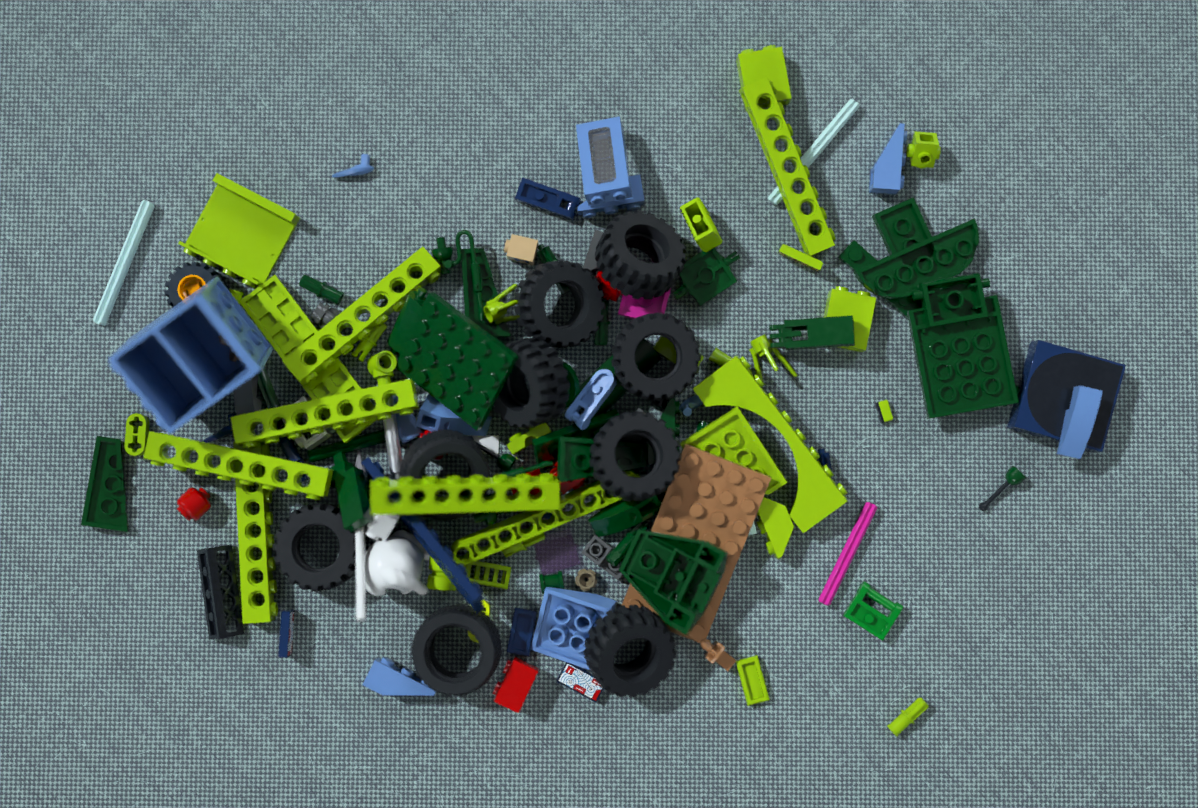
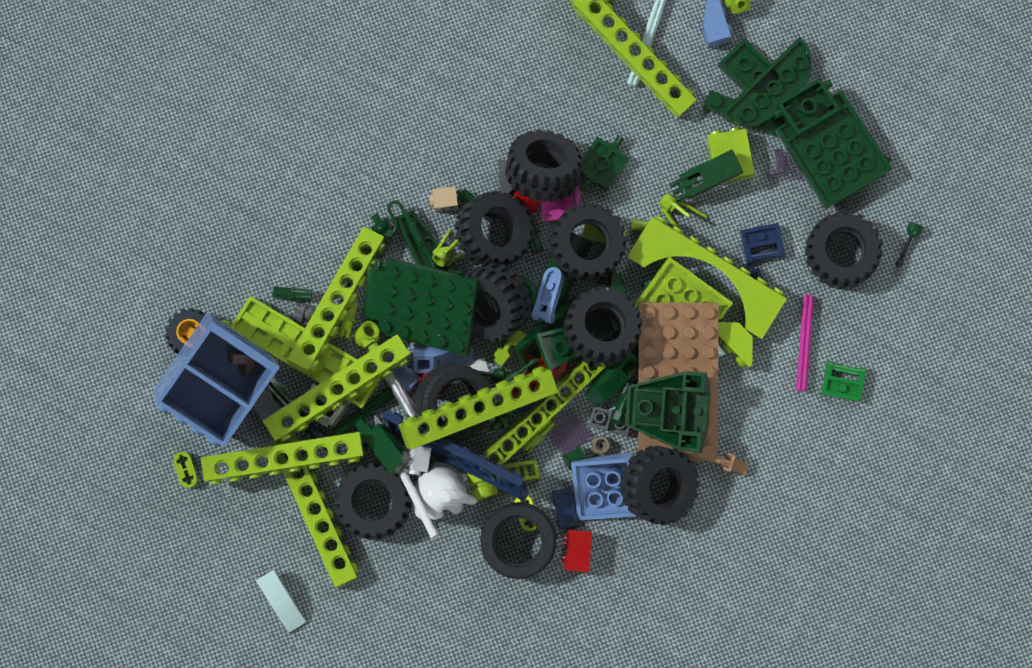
camera: 20 degrees left, 5 degrees down
(106, 493) = (178, 525): dark green wing -> none
(123, 262) = (120, 334): light aqua axle -> none
(182, 614) = (281, 601): none -> light aqua slope
(193, 503) = (255, 507): red head -> none
(212, 592) = (301, 573): black fence -> none
(224, 432) = (260, 437): dark blue bar -> none
(241, 232) = (207, 272): lime panel -> none
(286, 633) = (372, 581): dark blue tile -> none
(360, 169) = (287, 184): medium blue bar -> none
(391, 680) = (474, 588): medium blue slope -> none
(547, 198) = (448, 150): dark blue plate -> none
(580, 681) = (629, 530): tile -> none
(604, 161) = (484, 103): medium blue piece -> none
(612, 207) = (507, 124): medium blue slope -> none
(689, 405) = (630, 271): medium blue bar -> none
(701, 224) = (582, 124): lime brick -> none
(752, 680) = (768, 475): lime tile -> none
(800, 257) = (672, 120): lime tile -> none
(846, 421) = (761, 237): none -> dark blue plate
(884, 411) = (788, 218): lime piece -> none
(899, 350) = (781, 164): none -> clear purple tile
(908, 716) = (905, 455): lime axle -> none
(959, 466) = (858, 229): none -> black tyre
(1048, 387) = (929, 150): black tile -> none
(1079, 421) = (945, 164): medium blue slope -> none

